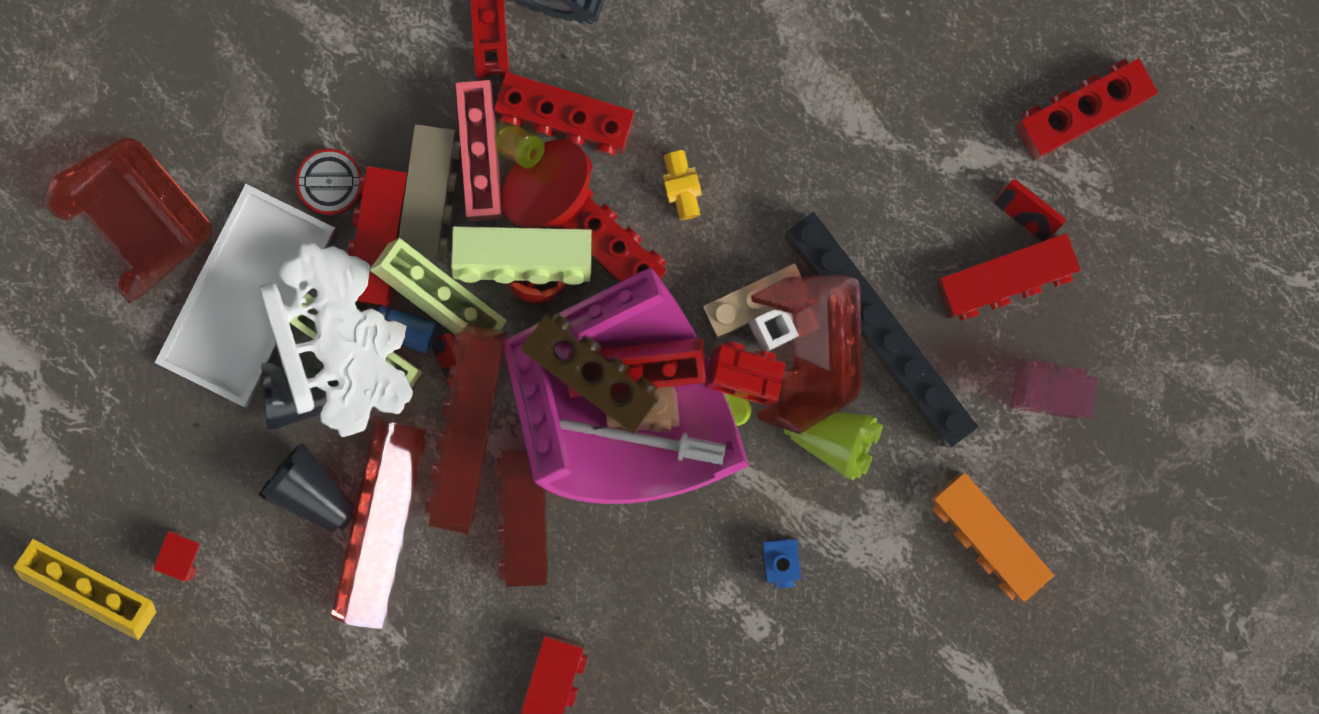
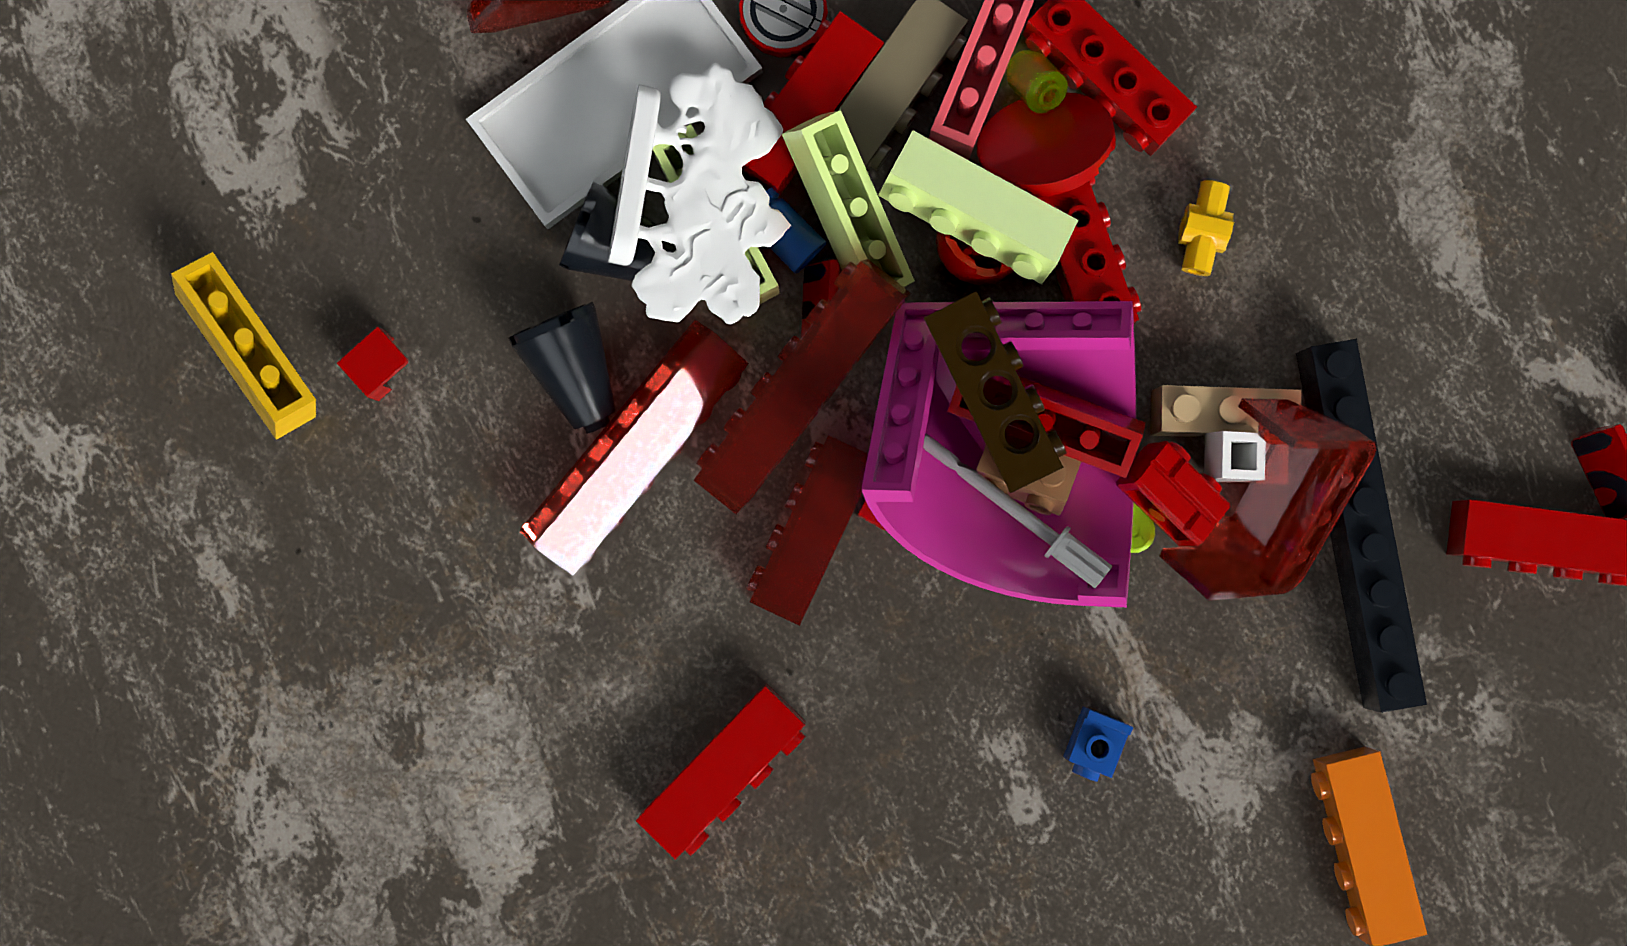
camera: 30 degrees right, 0 degrees up
(842, 442) = (1244, 634): lime cone -> none
(1060, 393) = (1544, 709): clear pink piece -> none

